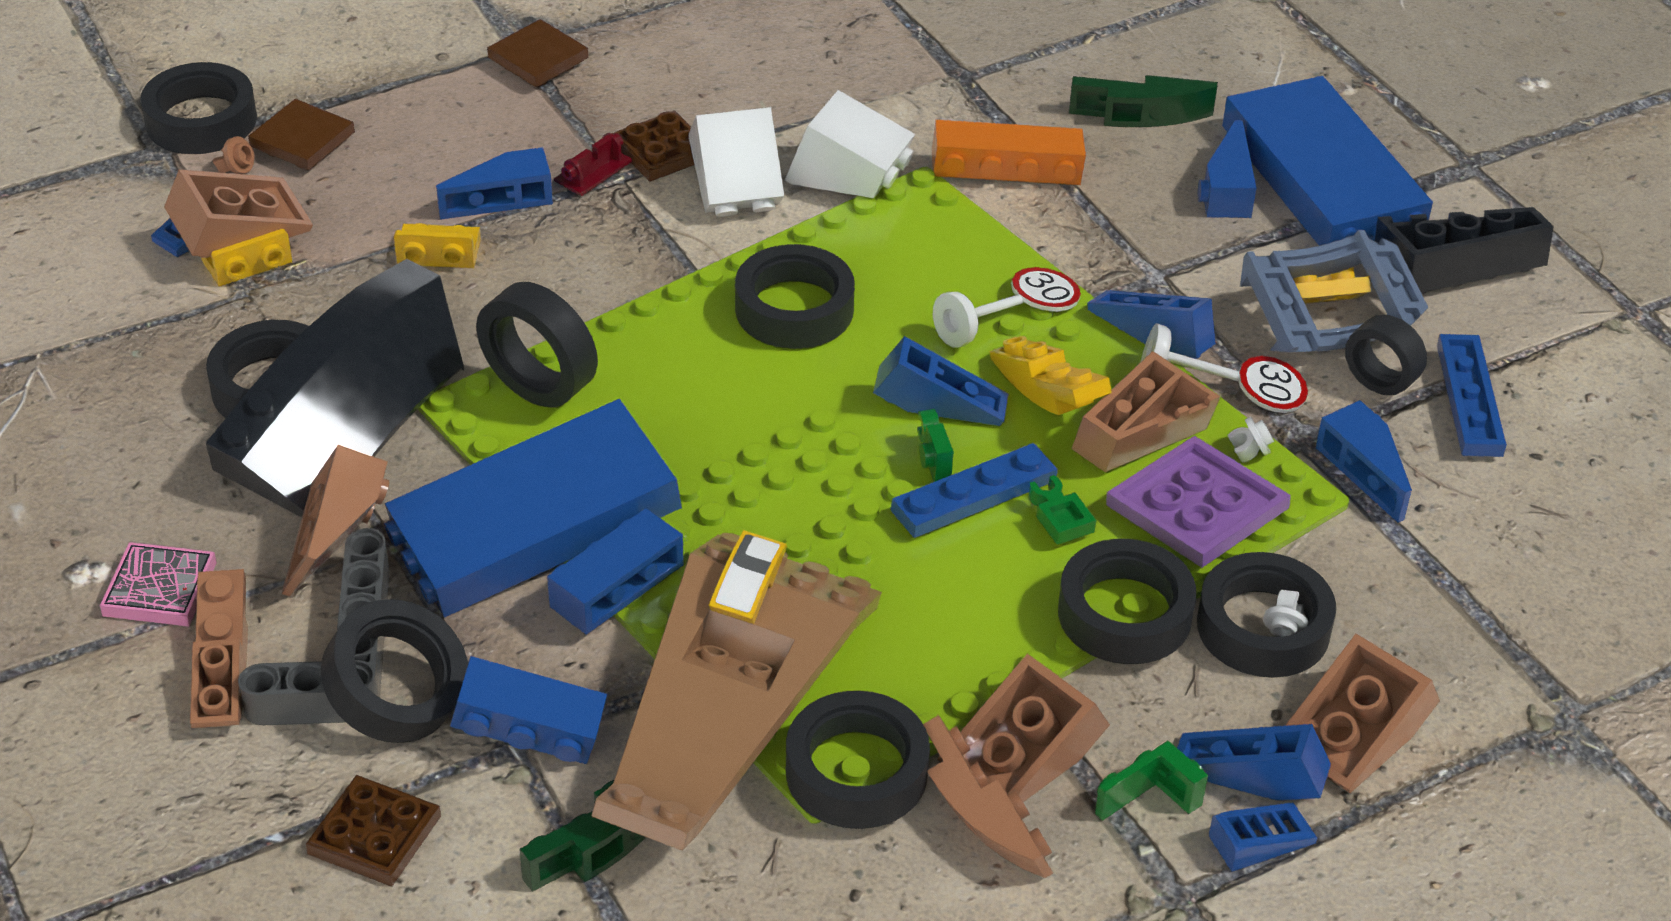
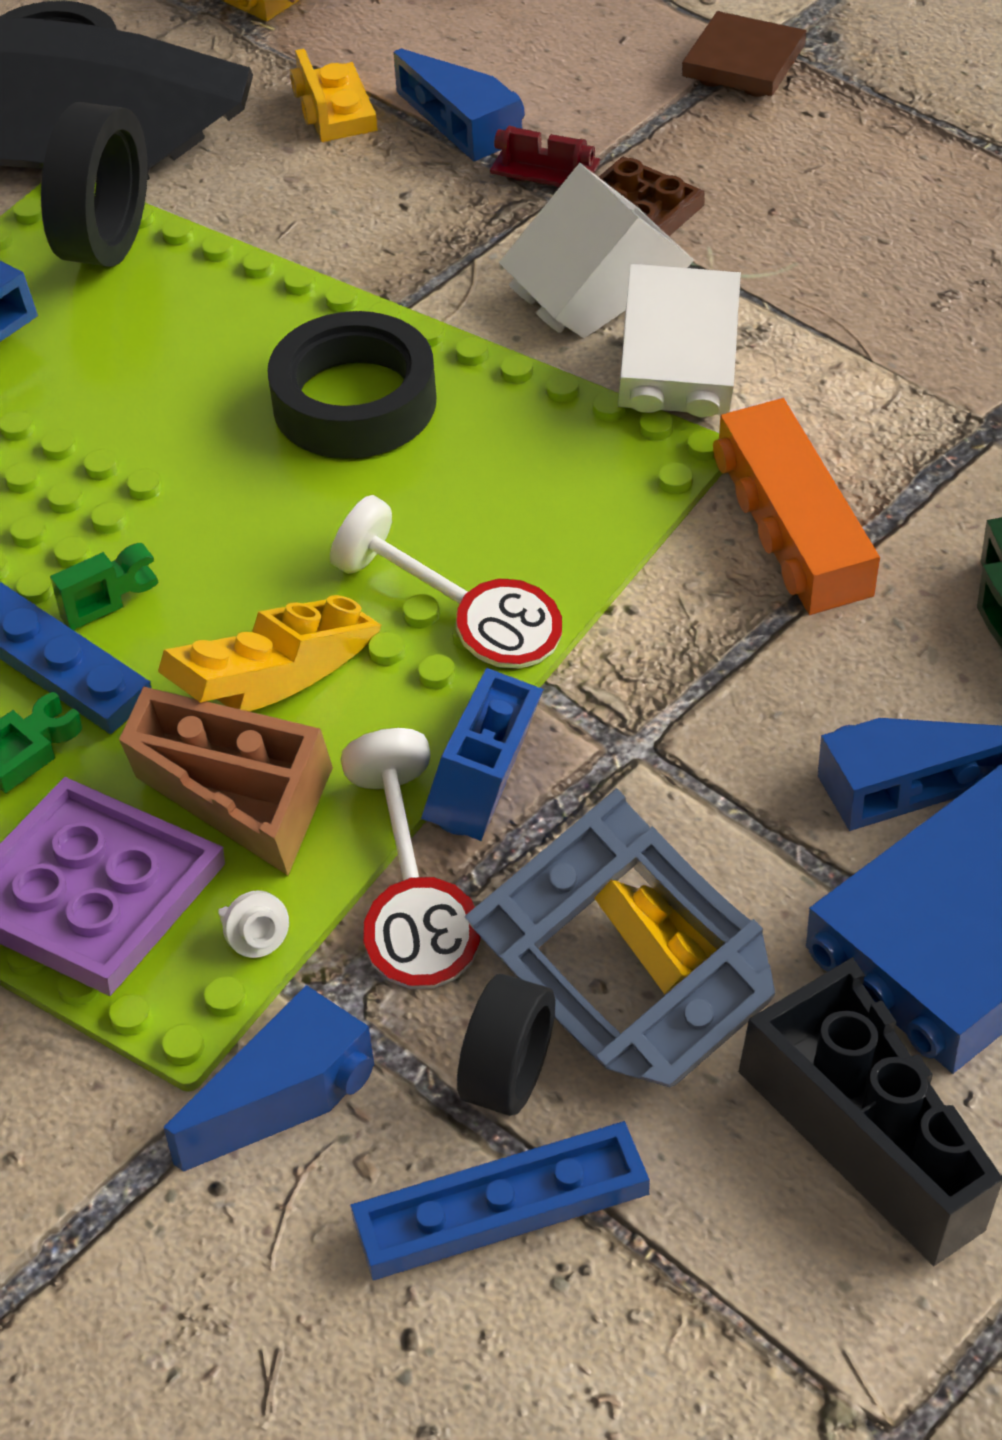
camera: 75 degrees right, 5 degrees up
(924, 381) = (216, 554): blue slope -> none

